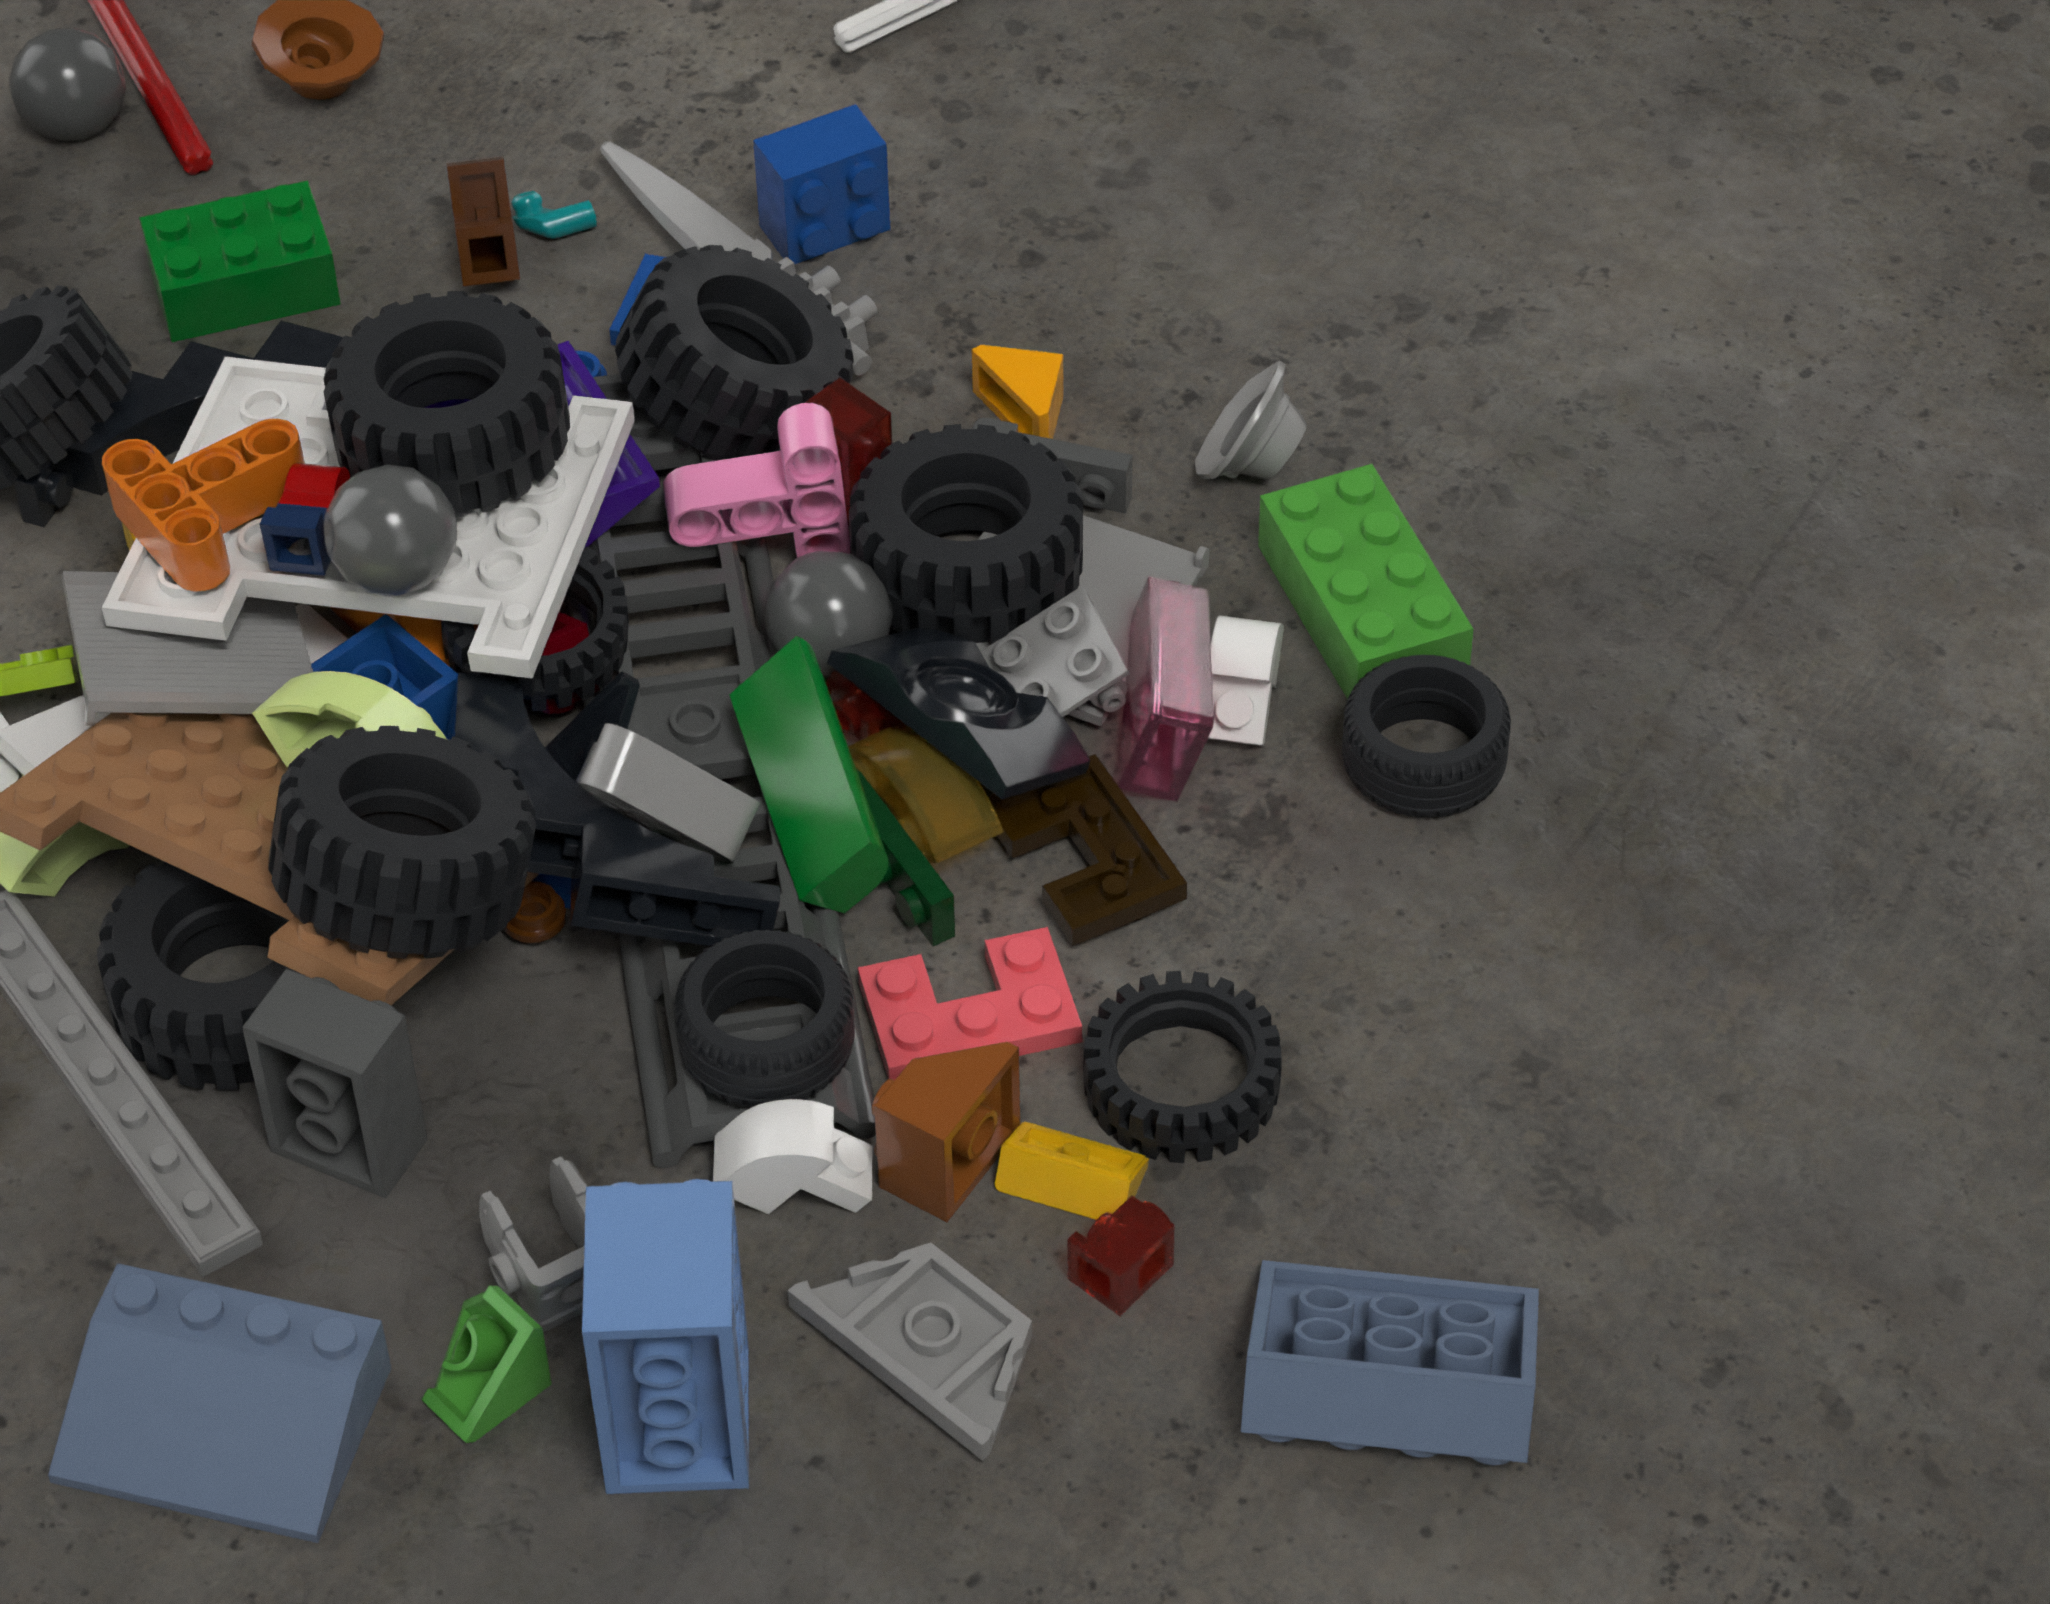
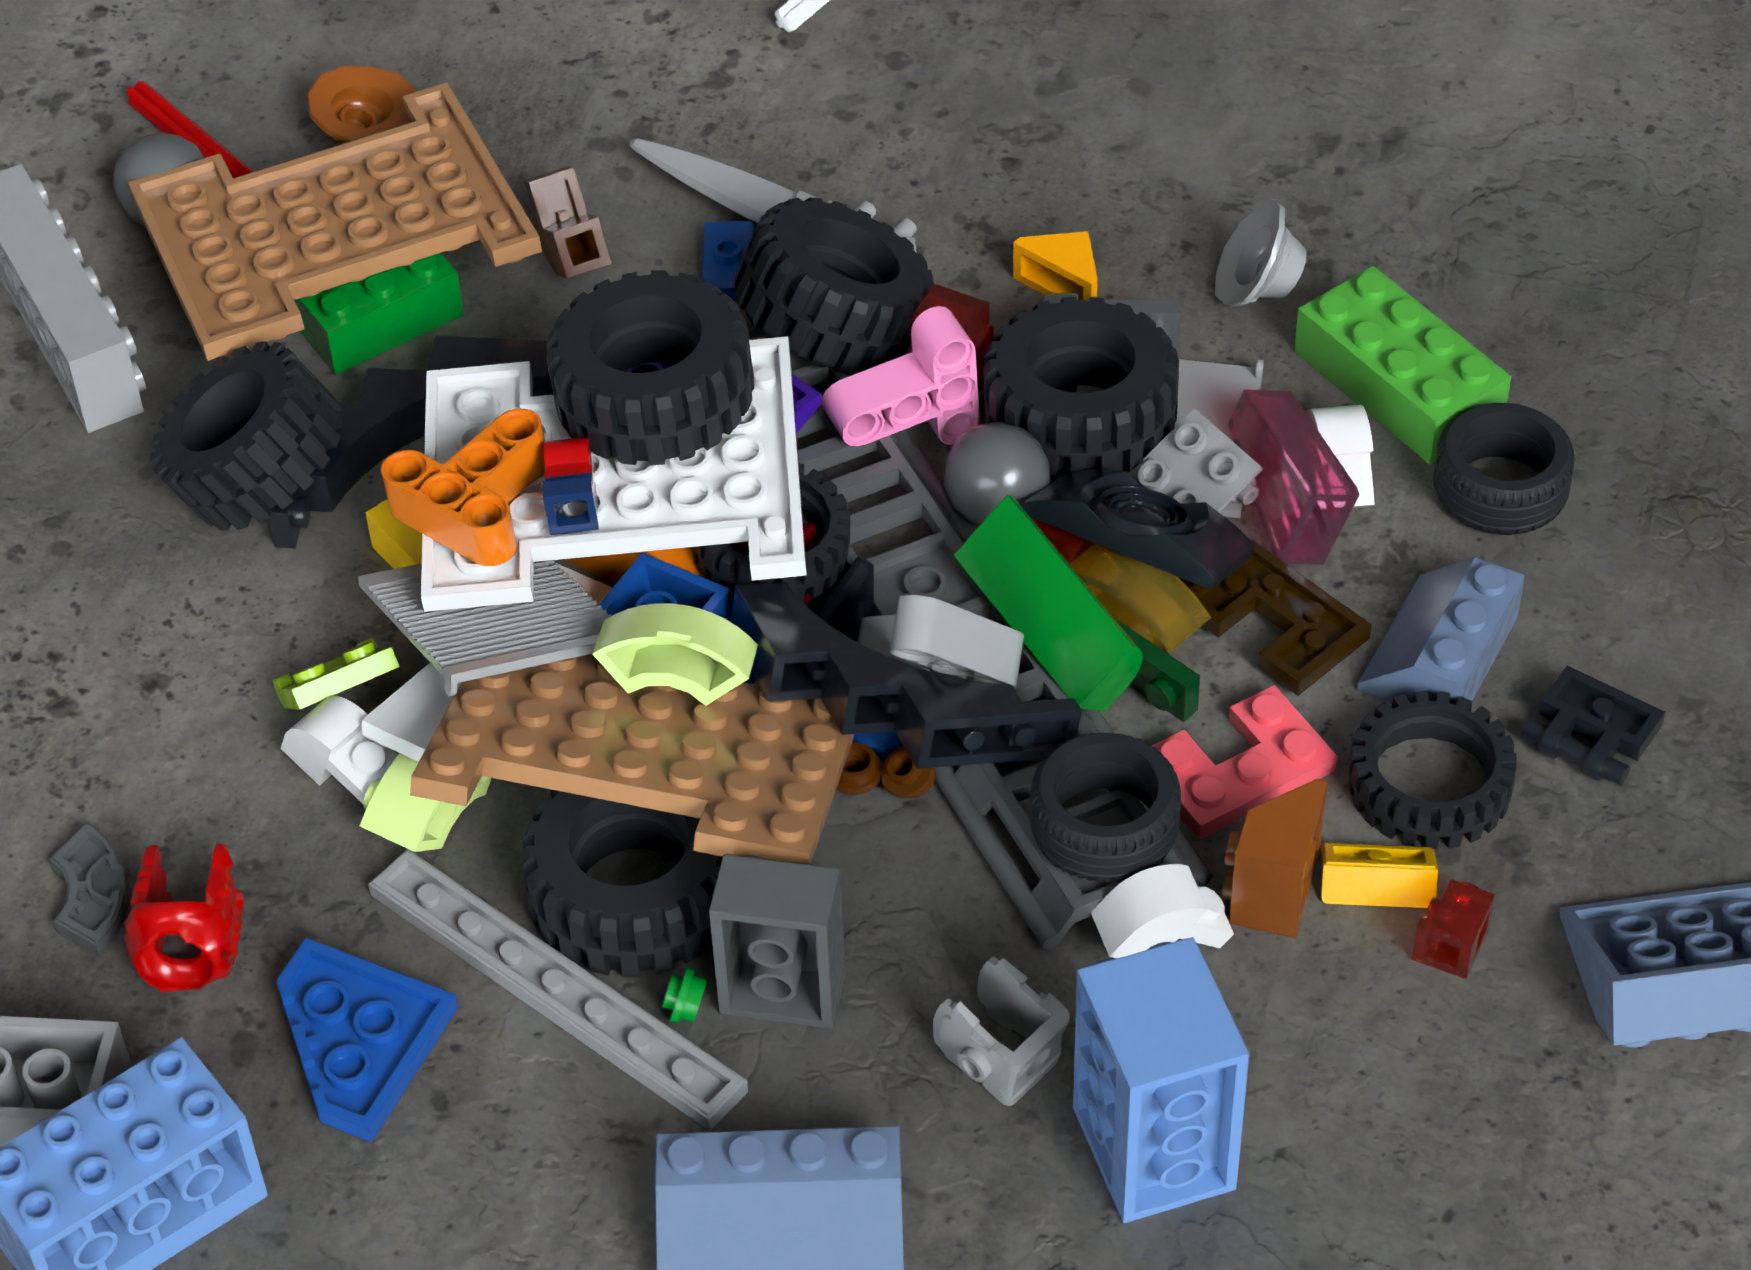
camera: 15 degrees left, 0 degrees up
(206, 164) = (326, 220): none -> medium nougat piece
(231, 1121) = (684, 996): none -> green plate
(390, 530) = (654, 478): dark grey piece -> none
(401, 841) = (774, 729): black tyre -> none
(490, 1365) = (985, 1138): bright green slope -> none
(549, 222) = (616, 212): teal arm -> none
(586, 943) = (914, 783): none -> reddish brown plate
(822, 184) = (833, 136): blue brick -> none
(928, 1336) = (1335, 1032): light grey wing -> none
(1275, 916) = (1446, 632): none -> sand blue slope
(1409, 1046) = (1597, 712): none -> black plate

